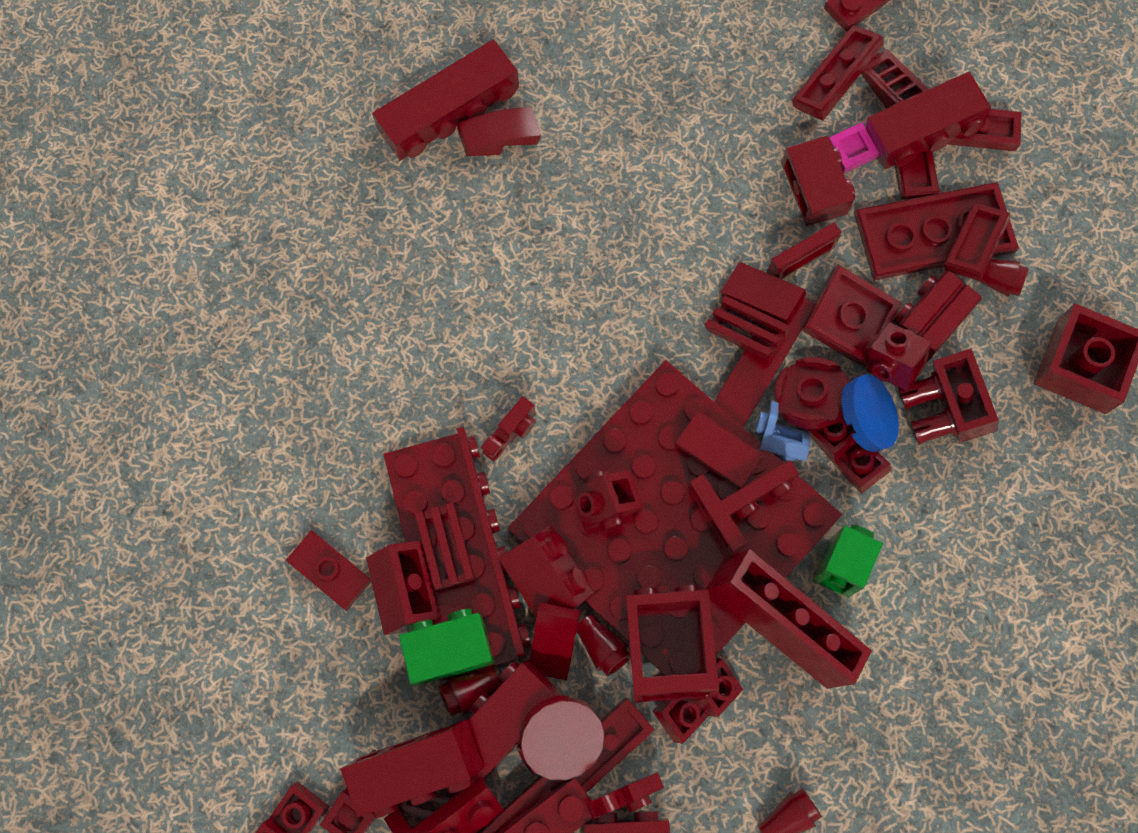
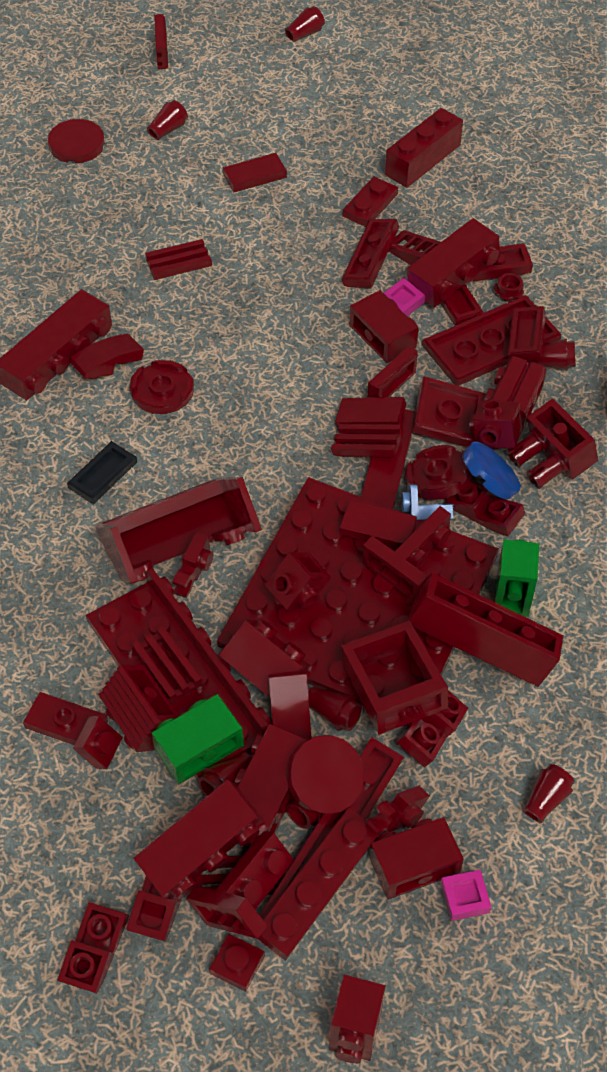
camera: 20 degrees left, 20 degrees down
(350, 610) = (97, 742): none -> dark red plate
(452, 279) = (102, 472): none -> black tile
(497, 372) = (167, 526): none -> dark red windscreen
(558, 188) = (155, 394): none -> dark red tile
(617, 13) = (178, 259): none -> dark red tile
(988, 160) = (509, 286): none -> dark red plate

